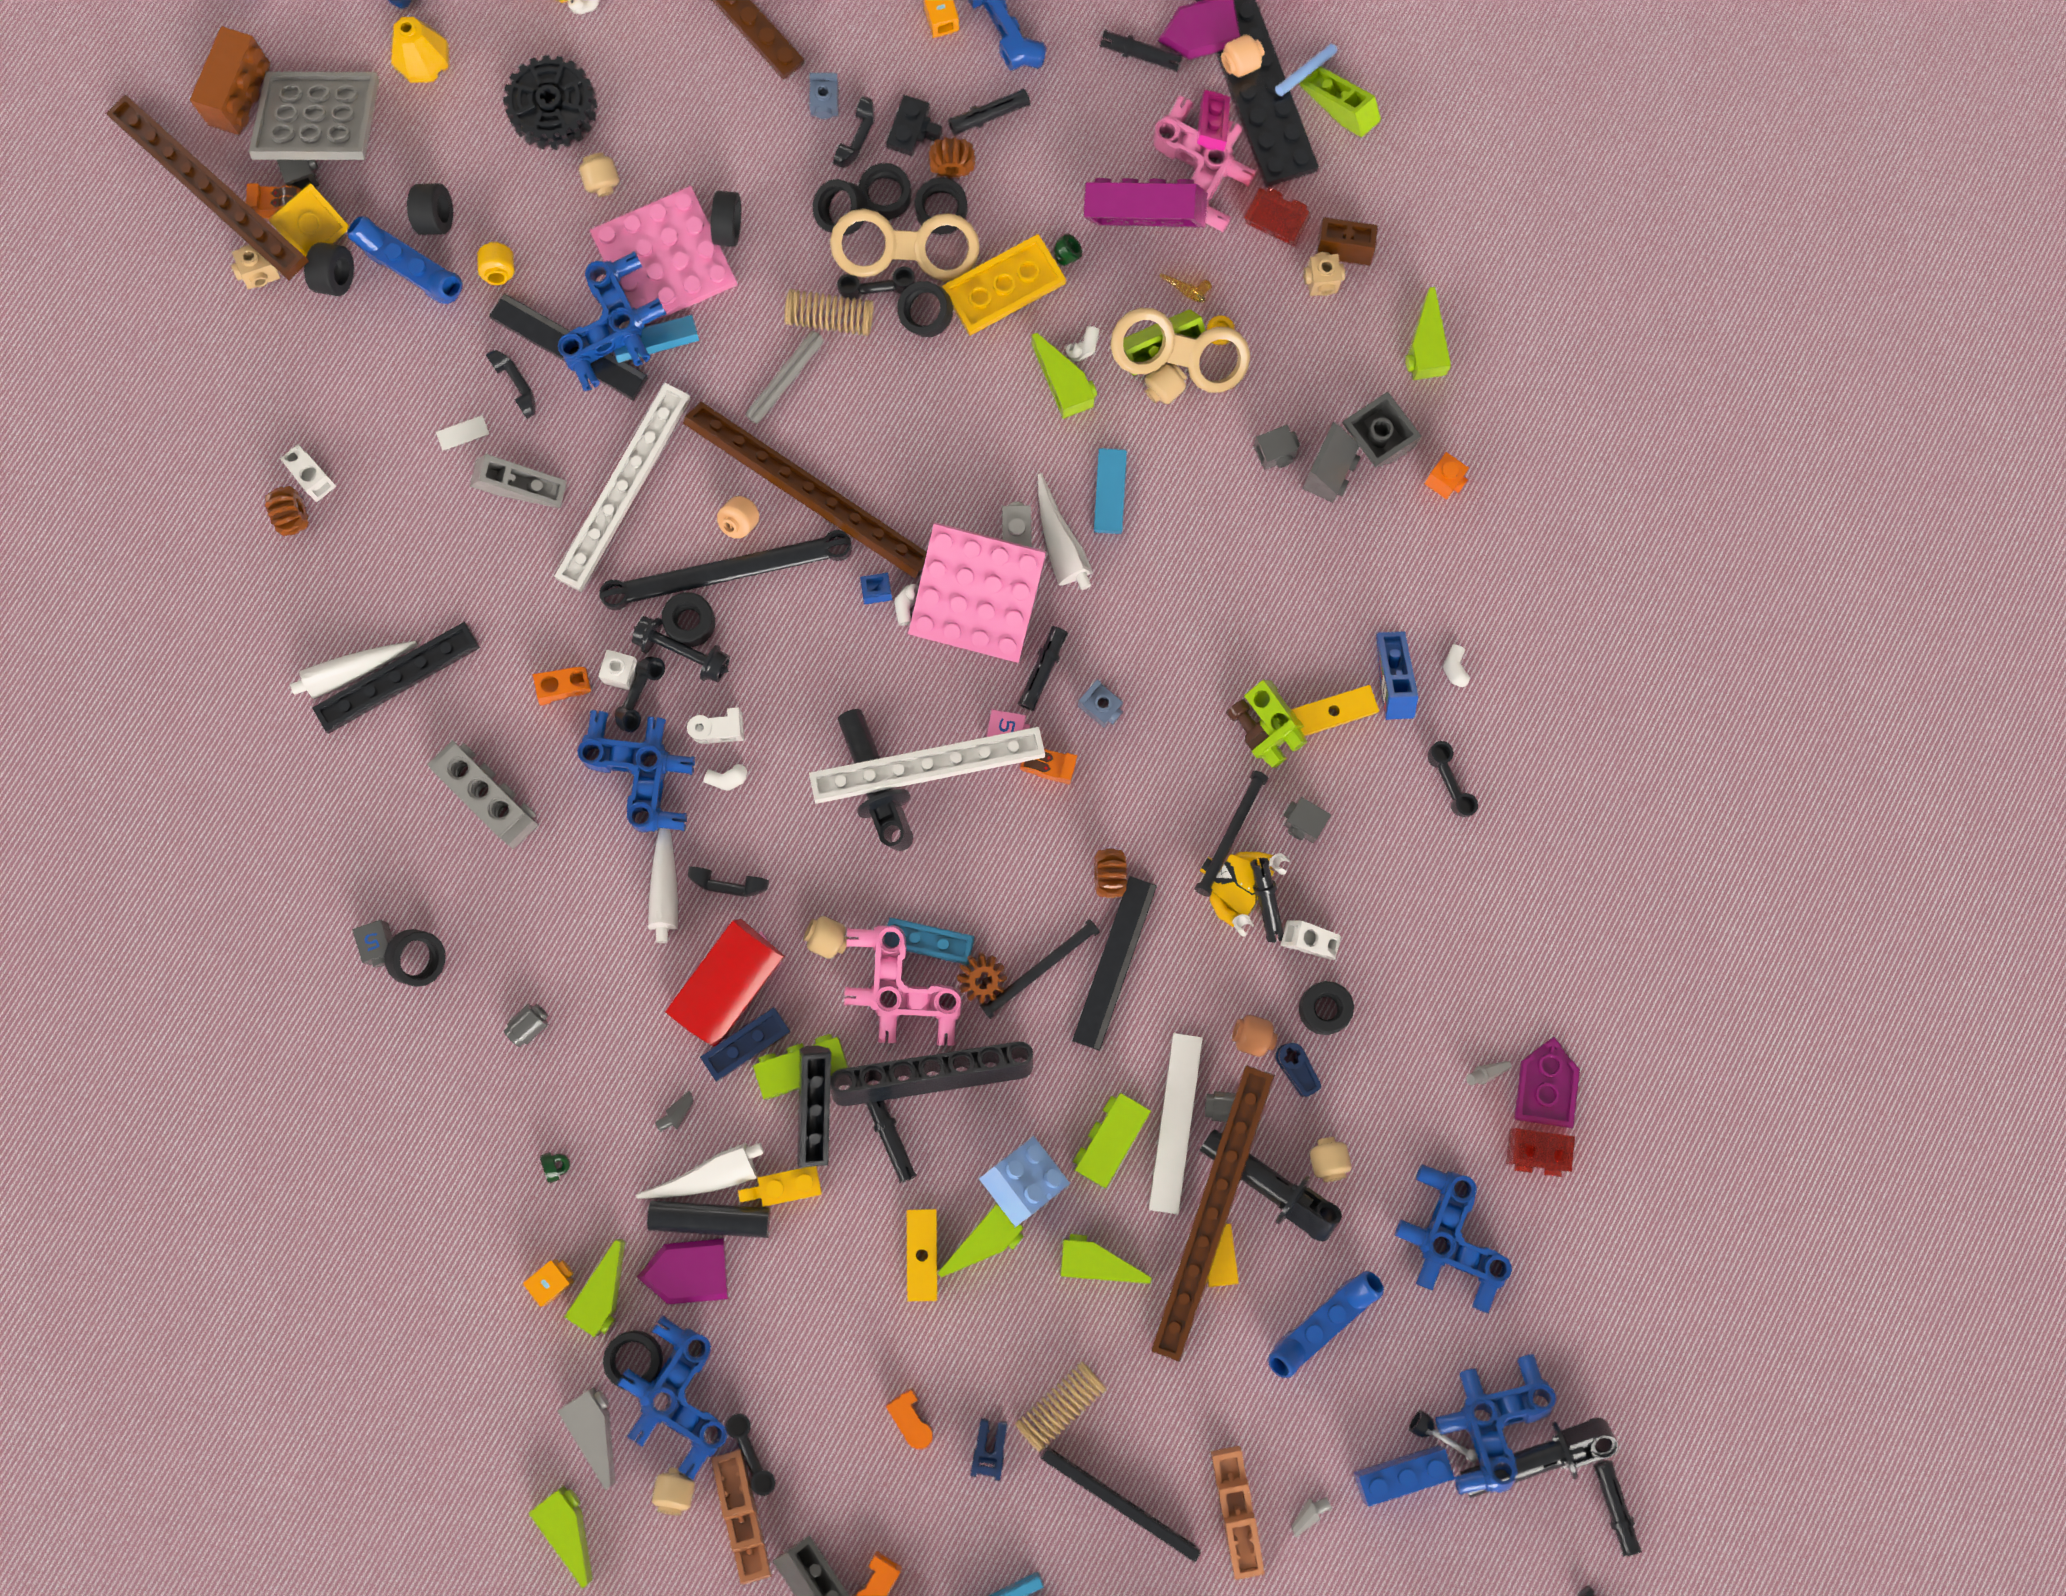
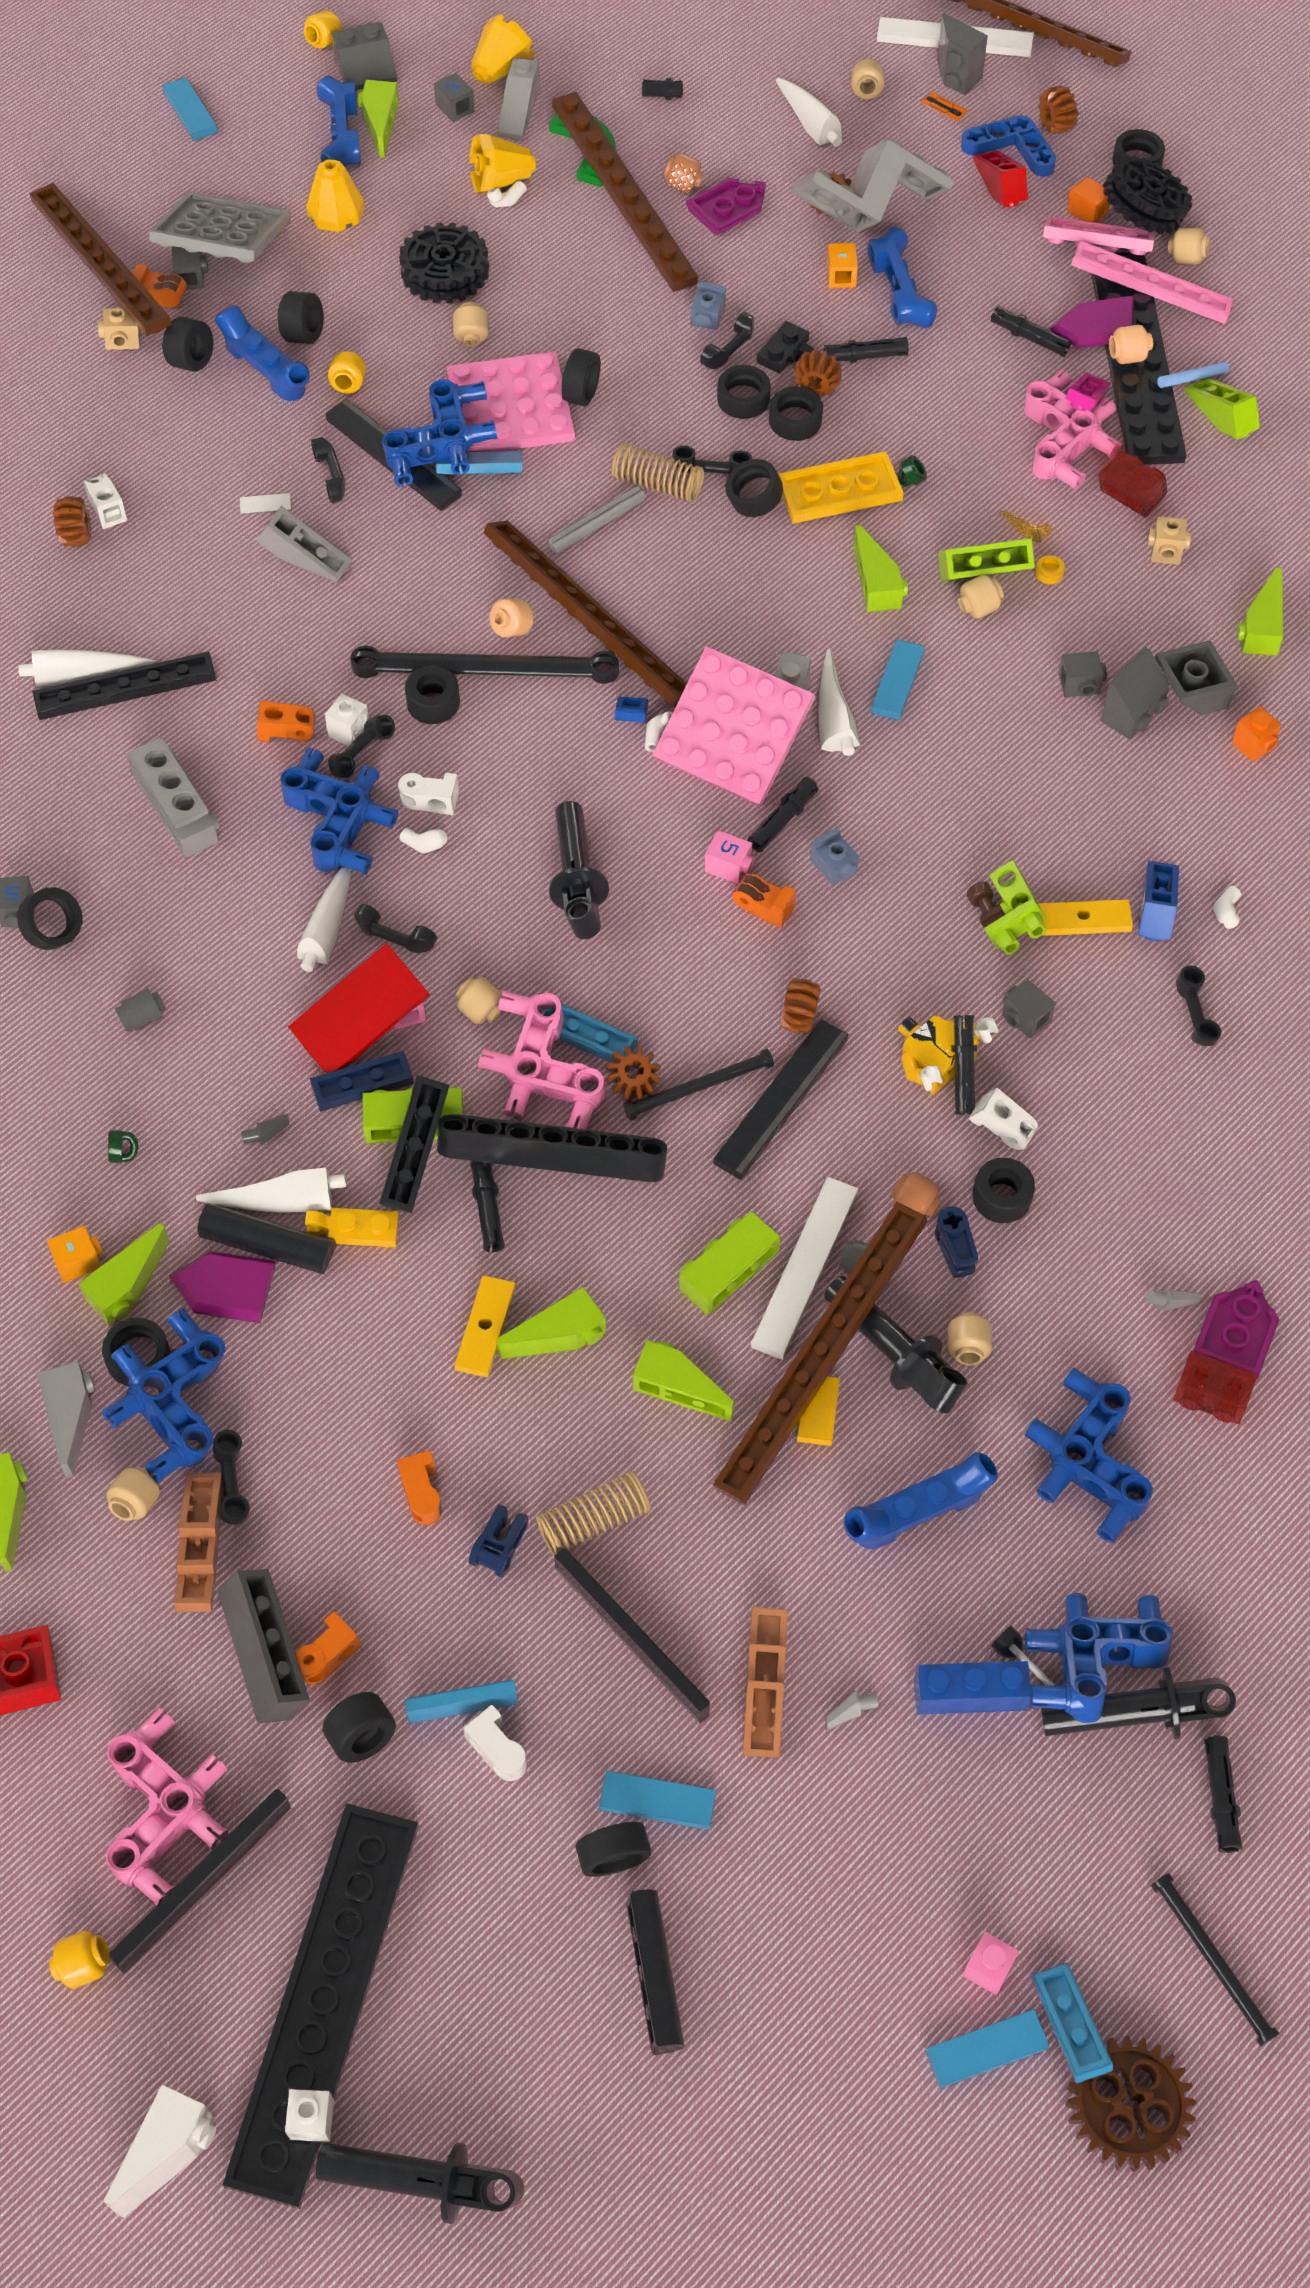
camera: 20 degrees right, 20 degrees down
(230, 81) = (152, 185): dark orange brick -> none
(308, 220) = (185, 298): yellow plate -> none
(622, 487) = (404, 575): white plate -> none
(648, 633) = (444, 734): black piece -> none
(823, 200) = (705, 401): black tyre -> none
(904, 244) = (747, 430): tan bar -> none
(926, 765) = (635, 856): white plate -> none
(1024, 1181) = (620, 1270): light blue piece -> none
(1085, 348) = (909, 555): white arm -> none
(1145, 203) = (1000, 437): magenta brick -> none
(1180, 350) = (1002, 563): tan bar -> none
(1204, 888) = (899, 1036): black bar -> none
(1349, 239) = (1205, 517): reddish brown hinge -> none

